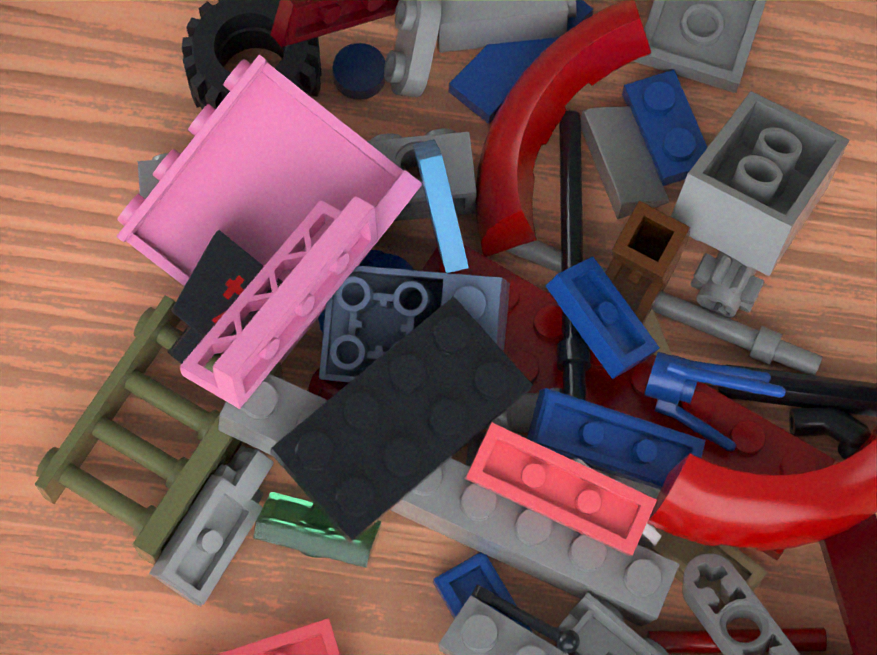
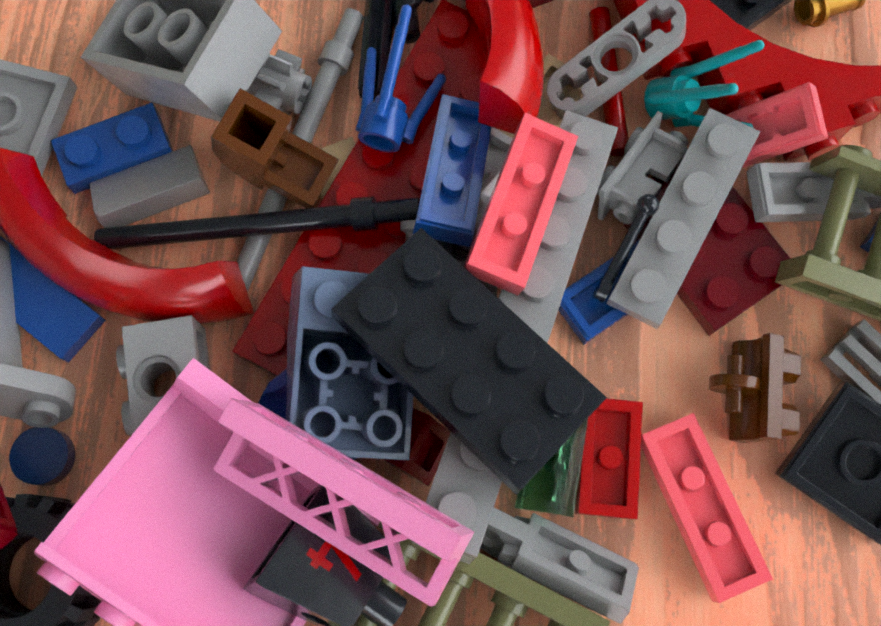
camera: 95 degrees left, 5 degrees up
(309, 587) = (611, 461): none -> red plate
(440, 206) = (215, 337): tile -> none
(602, 317) = (328, 182): blue plate -> none

